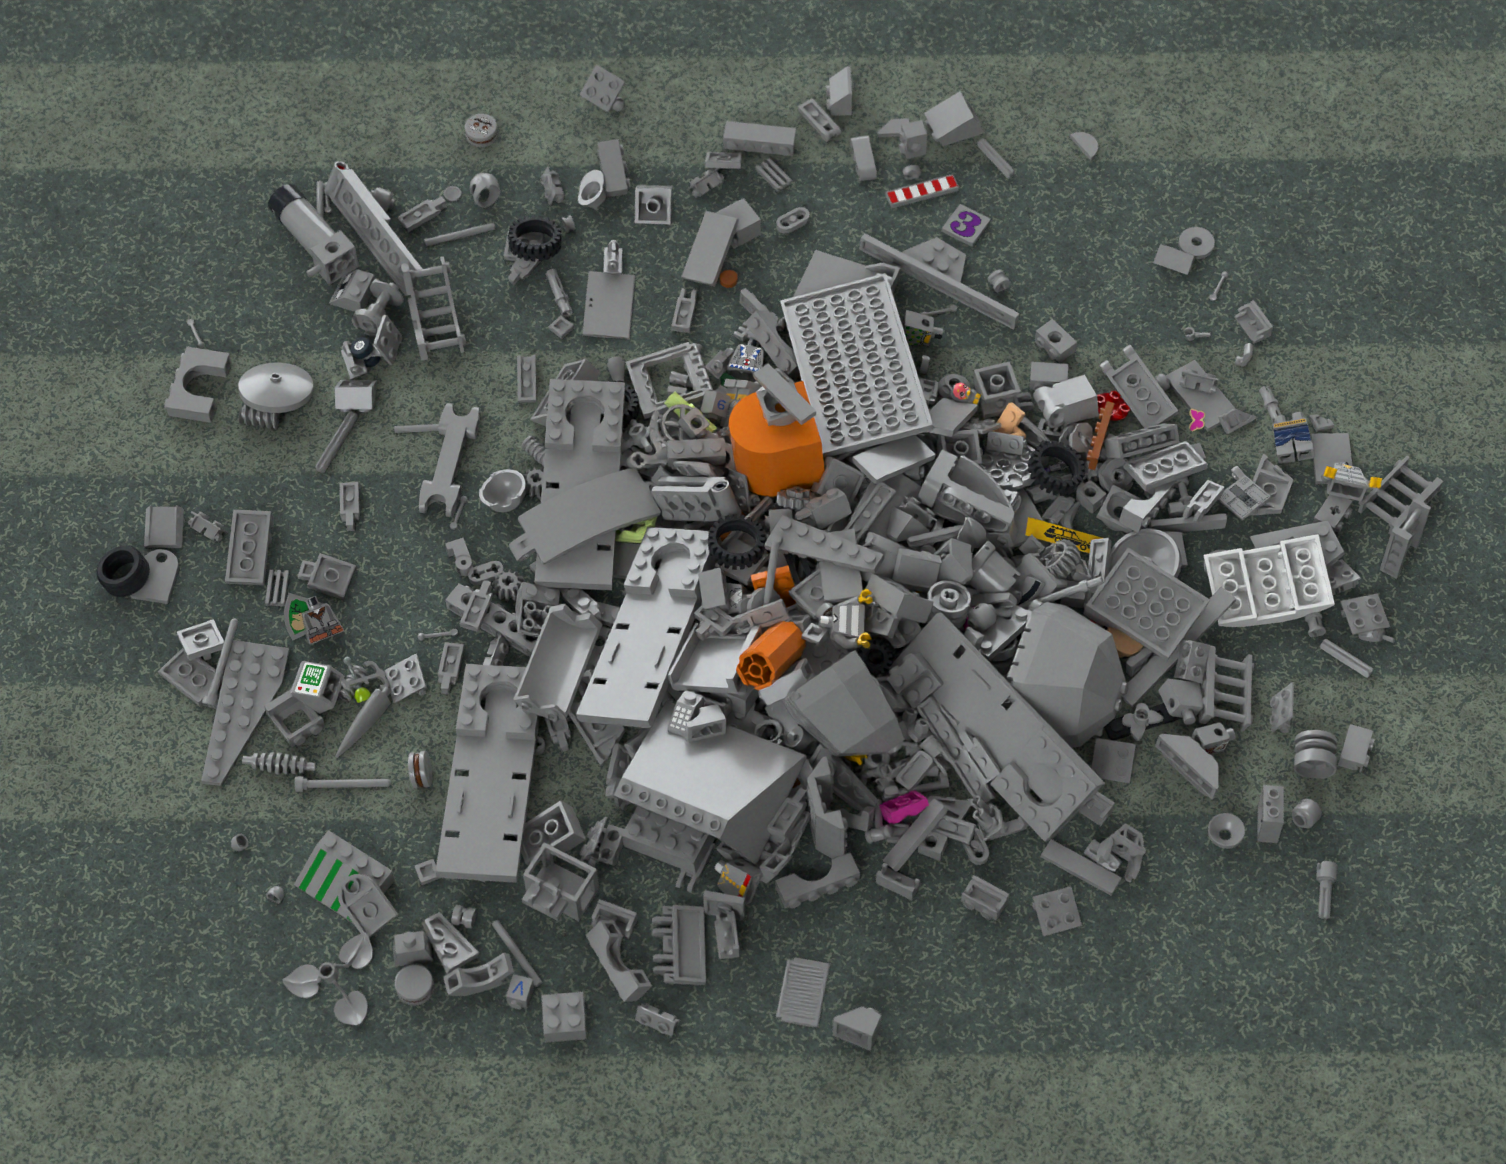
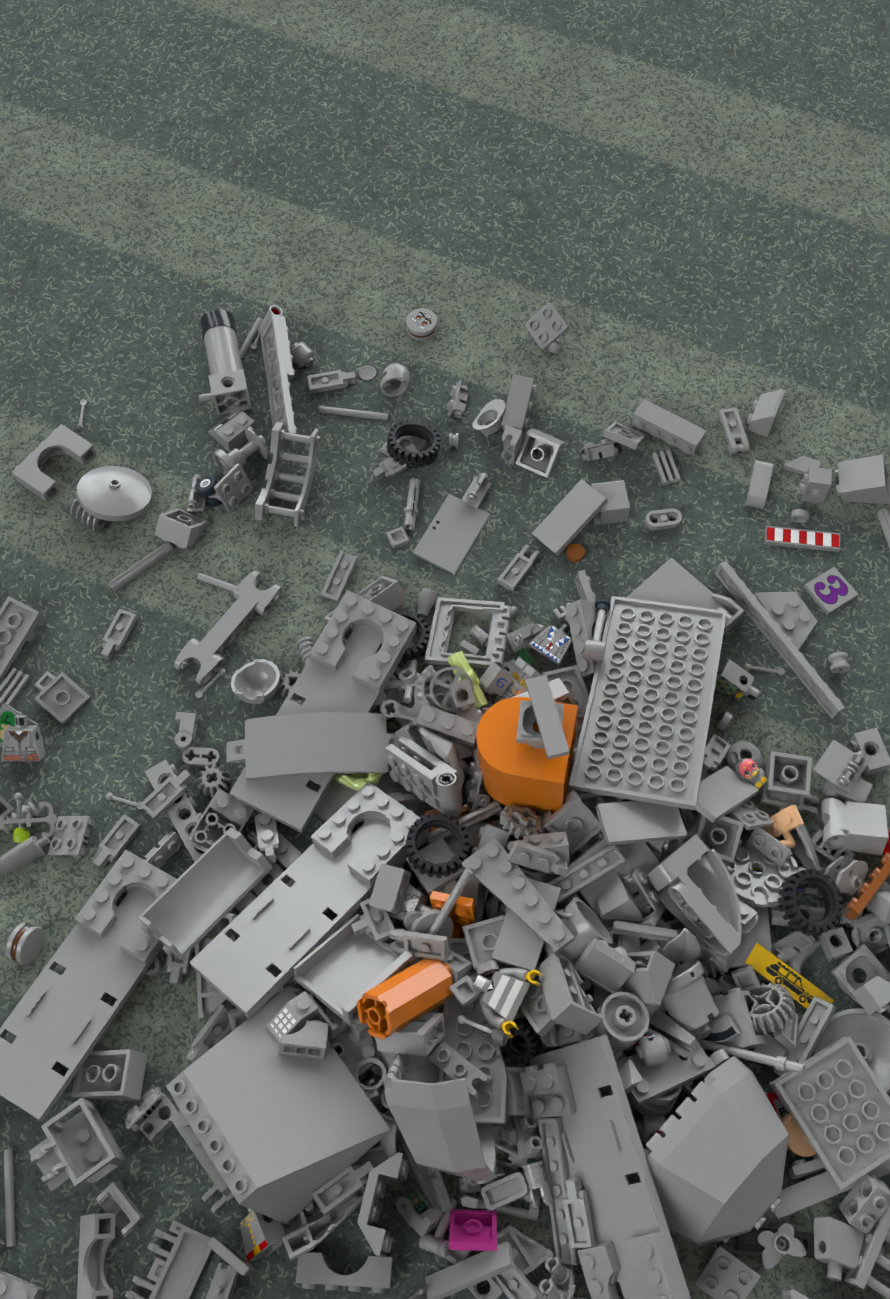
camera: 25 degrees right, 5 degrees up
(624, 205) = (512, 443): none -> light grey hinge
(788, 344) = (595, 648): none -> light grey piece
(824, 514) = (537, 858): none -> light grey hinge
(860, 651) = (497, 1035): none -> hinge
(1036, 358) = (841, 766): none -> light grey hinge

